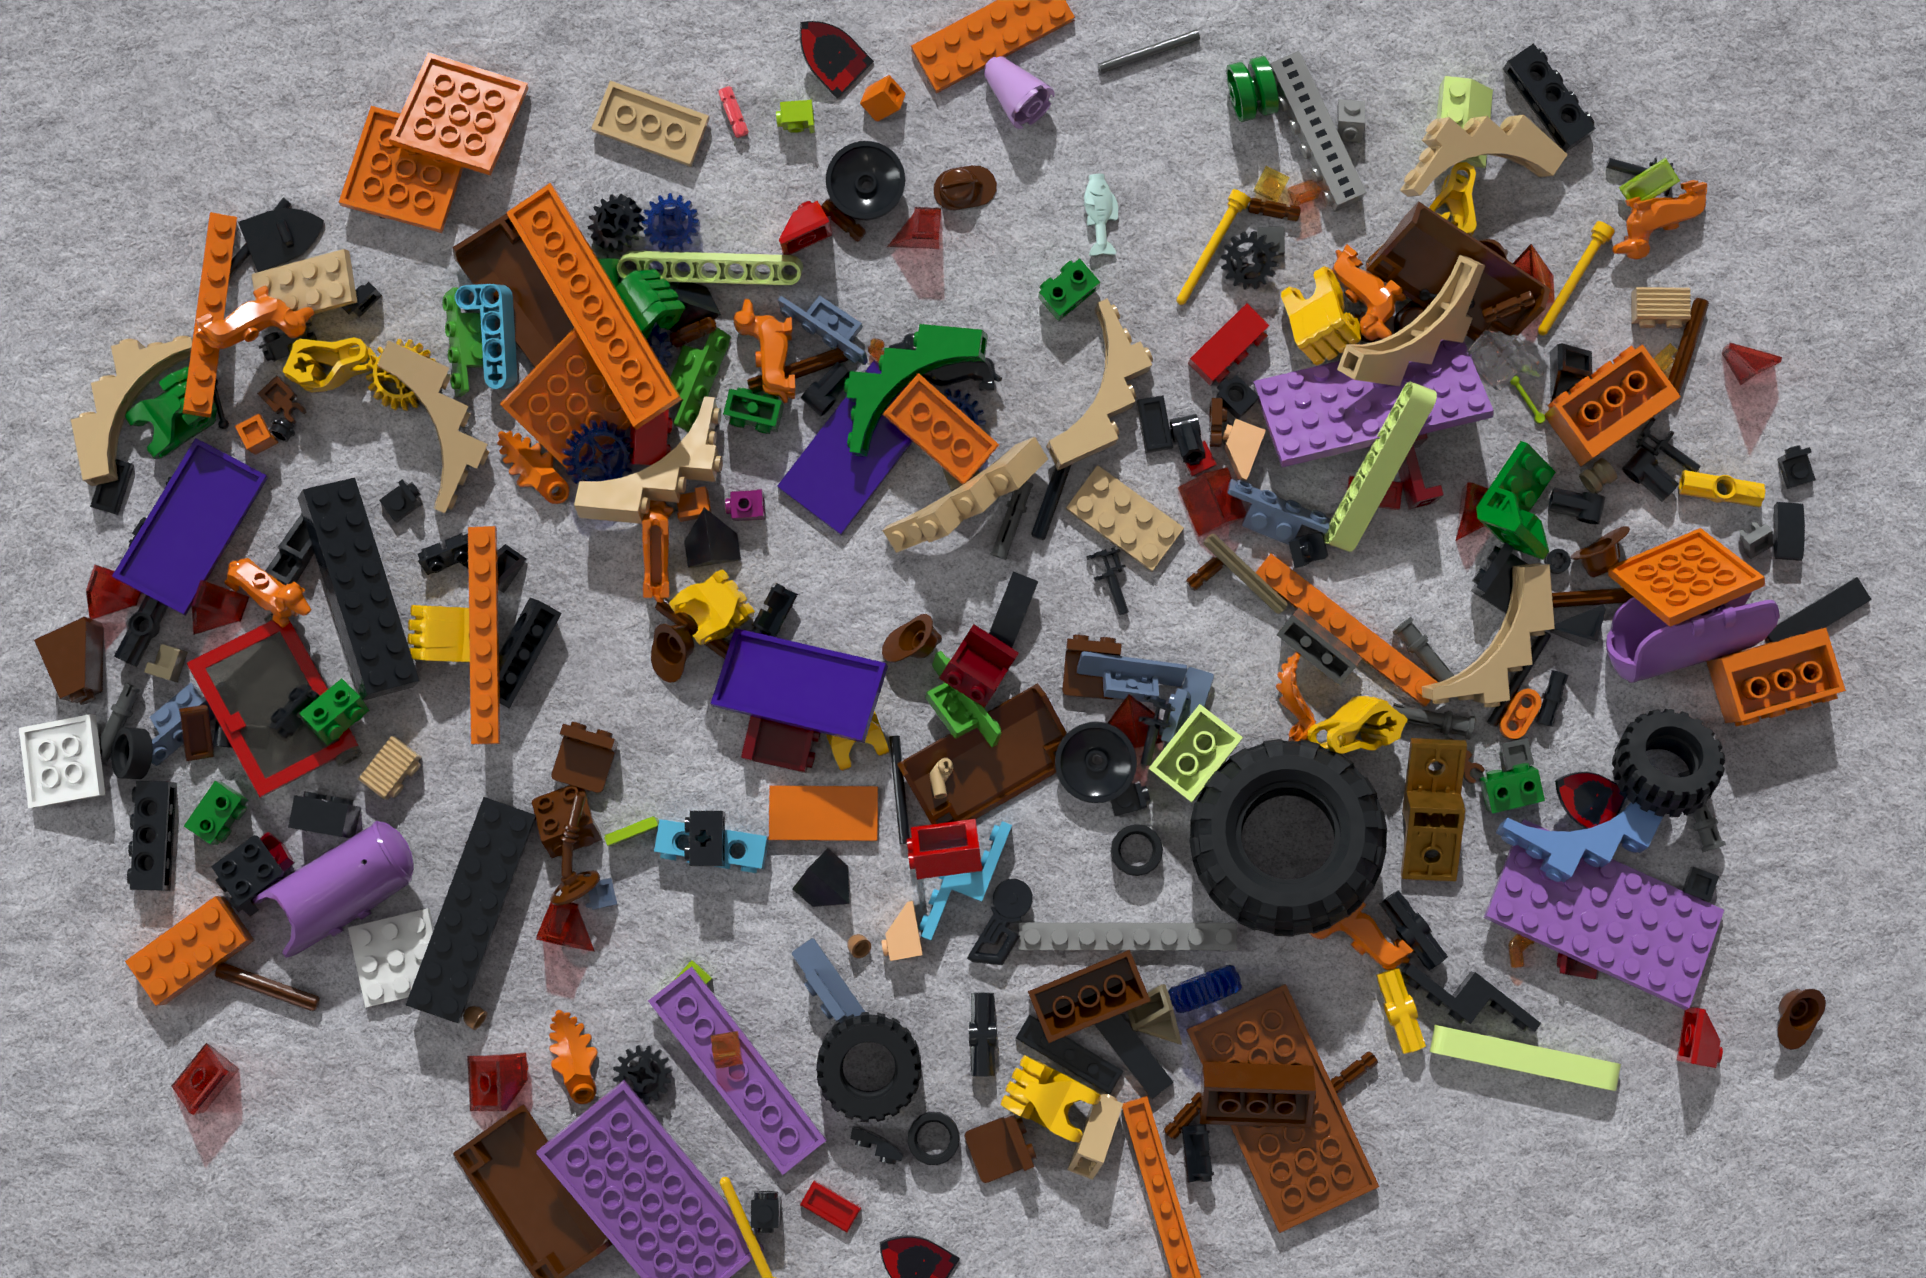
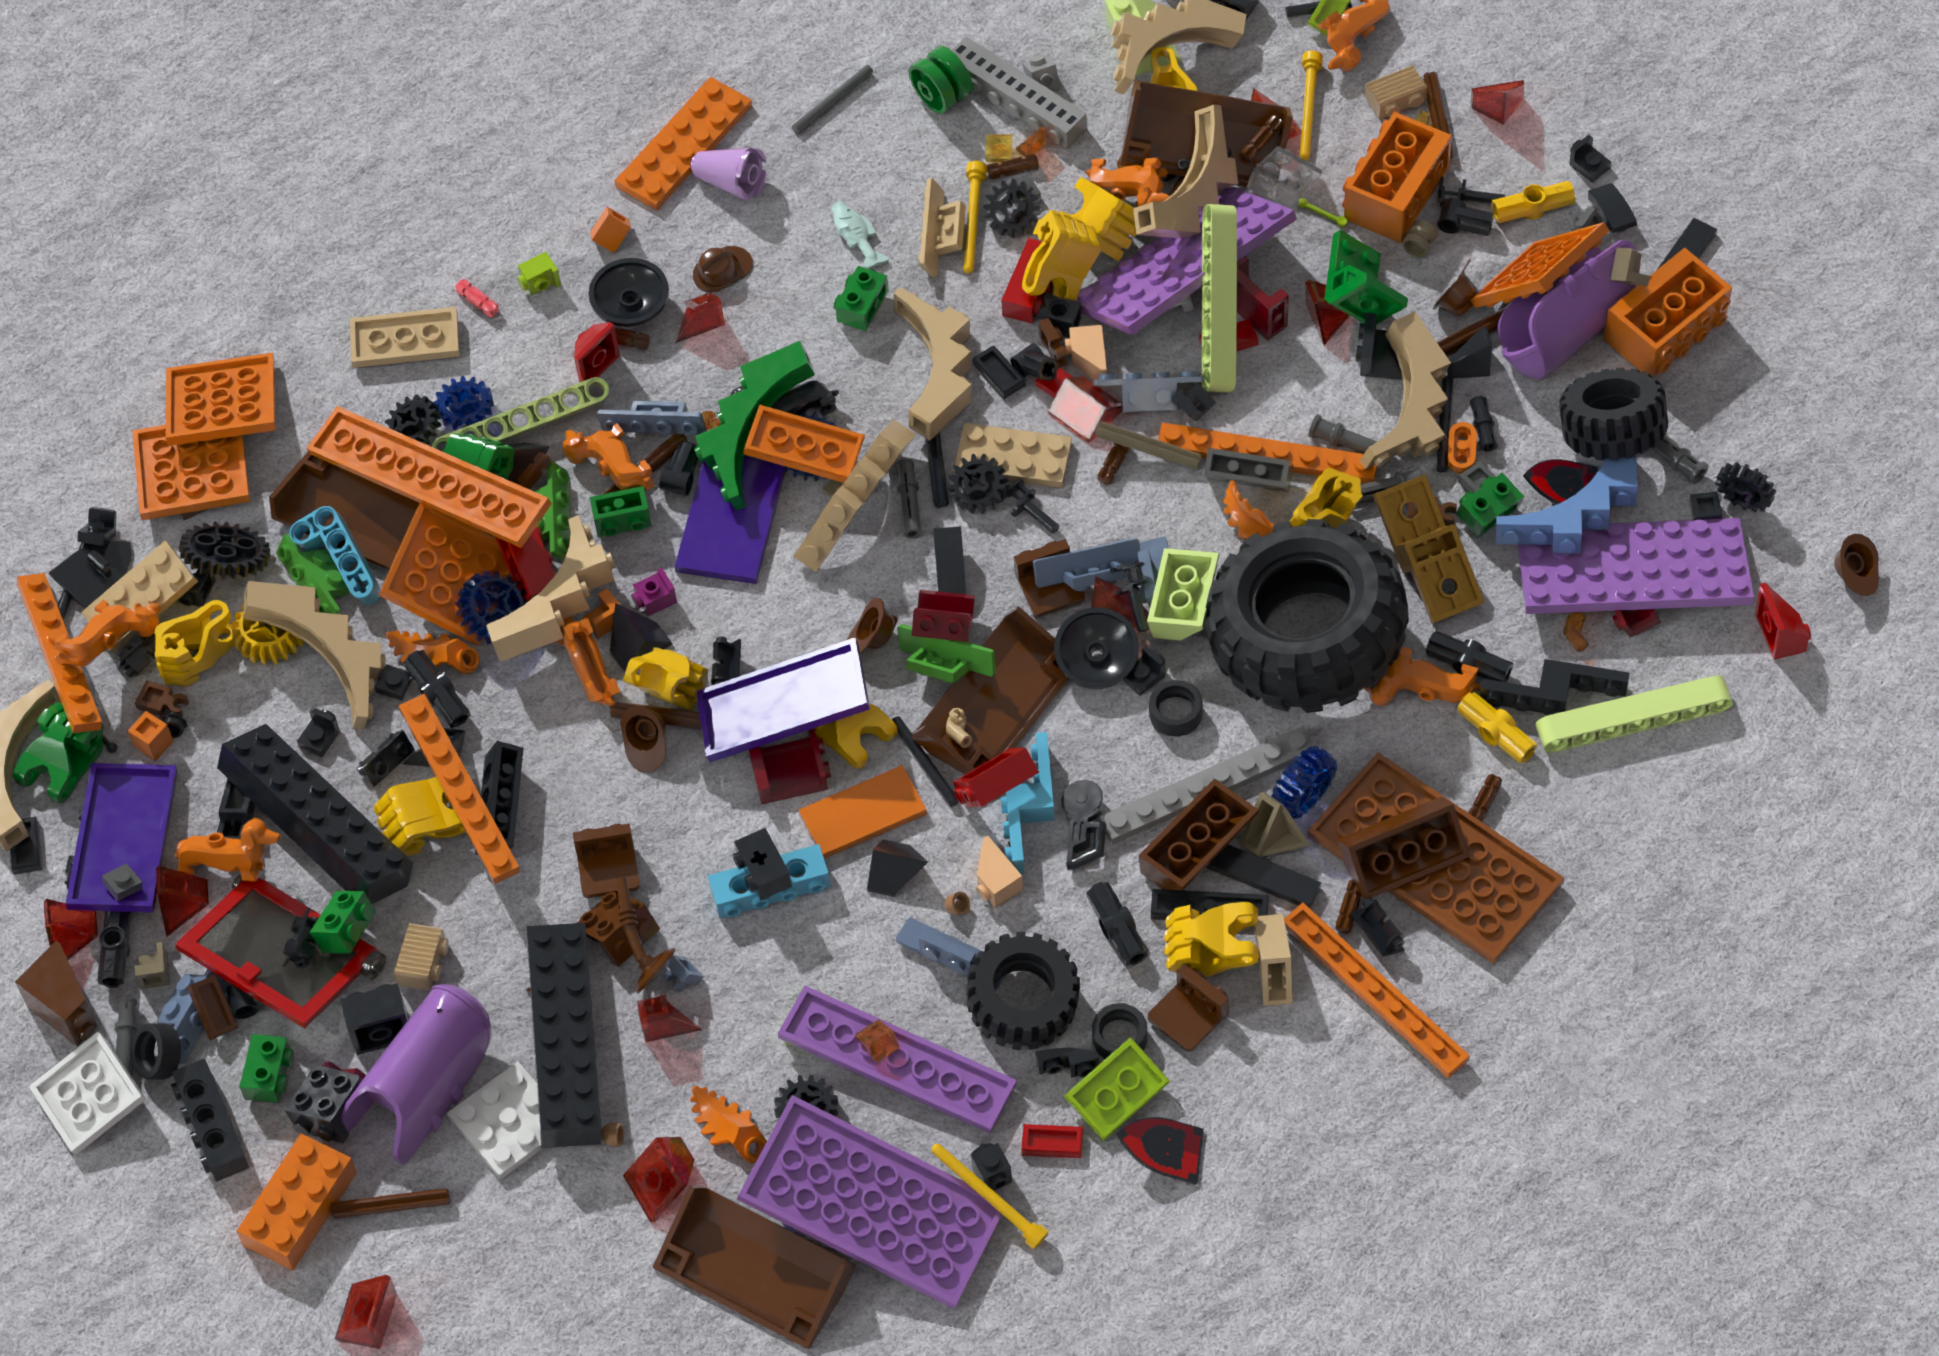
camera: 25 degrees left, 25 degrees down
(167, 578) = (122, 882): none -> dark grey plate
(300, 196) = (100, 527): none -> black bracket
(394, 278) = (224, 550): none -> black gear
(487, 480) = (393, 682): none -> black plate
(517, 510) = (437, 688): none -> black piece
(631, 831) = (686, 904): lime tile -> none
(832, 55) = (546, 215): shield -> none
(904, 1192) = (1116, 1089): none -> lime tile
(1072, 528) = (983, 475): none -> black gear
(1177, 246) = (941, 227): none -> tan bracket
(1263, 346) = (1062, 257): none -> yellow piece
(1563, 554) = (1427, 312): black bush -> none
(1568, 367) = (1337, 167): black slope -> none
(1585, 506) = (1422, 267): black piece -> none
(1744, 890) = (1745, 487): none -> black gear
(1757, 631) = (1626, 268): none -> dark tan panel

